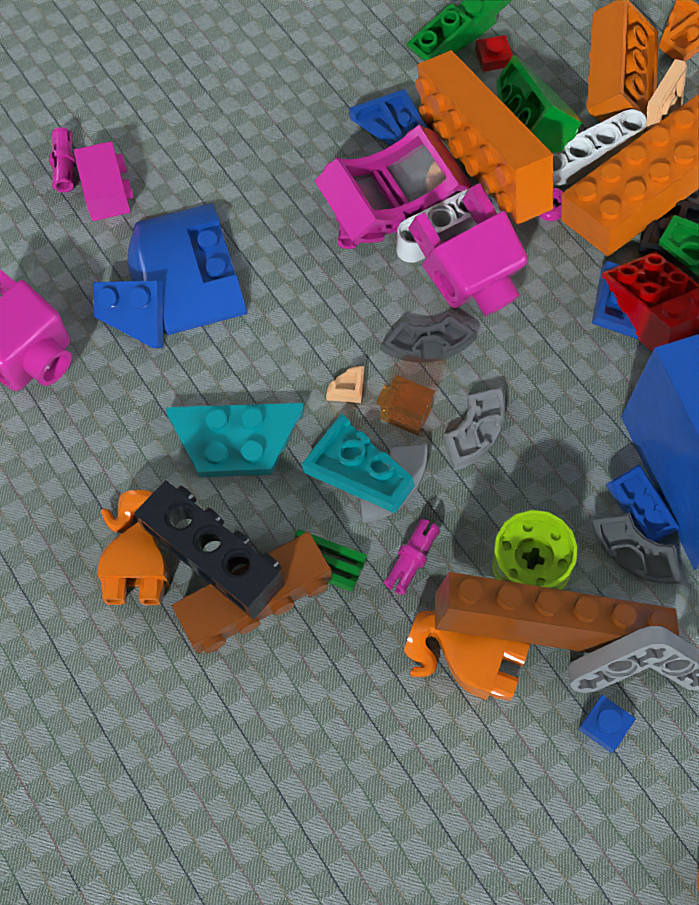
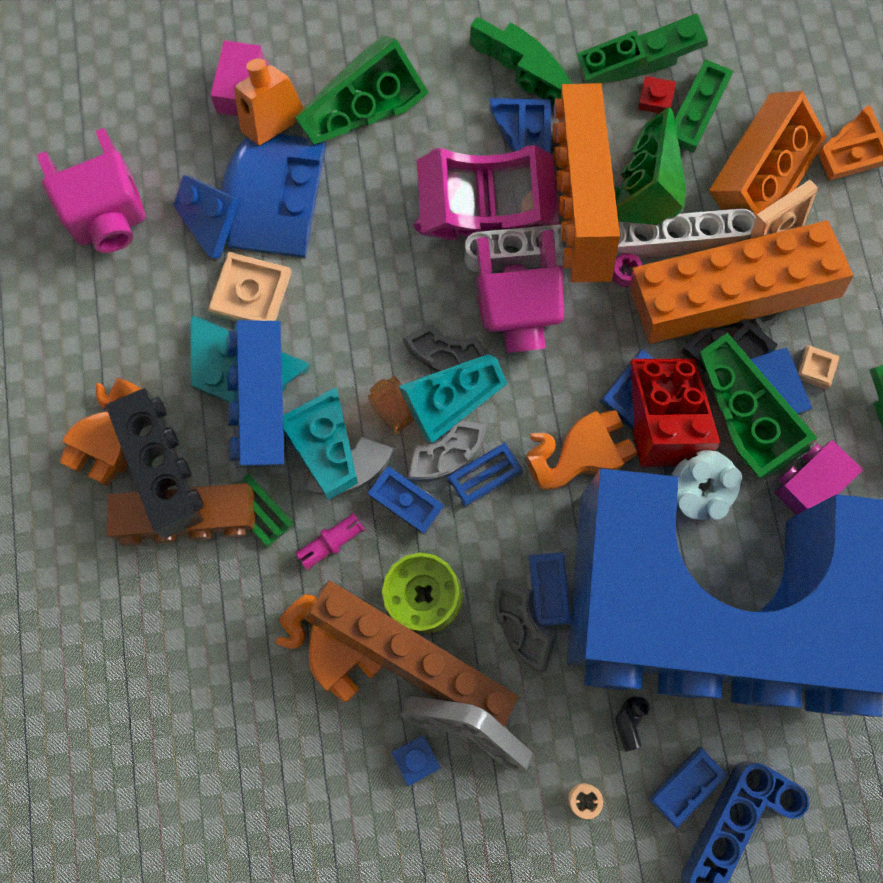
camera: 25 degrees right, 10 degrees up
(62, 160) = (213, 43): dark pink pin -> none
(144, 186) = (265, 102): none -> orange torso
(209, 364) = (249, 289): none -> light nougat tile
(231, 144) = (366, 90): none -> green wedge
(278, 444) = (257, 394): none -> blue brick
(347, 386) = (356, 363): light nougat tile -> none
(360, 61) = (517, 50): none -> green slope
(458, 370) = (452, 394): none -> teal wing
(465, 486) = (405, 500): none -> blue plate
(509, 455) = (461, 489): none -> blue tile
(537, 42) = (701, 104): none -> green plate
(604, 369) = (583, 451): none -> orange hips

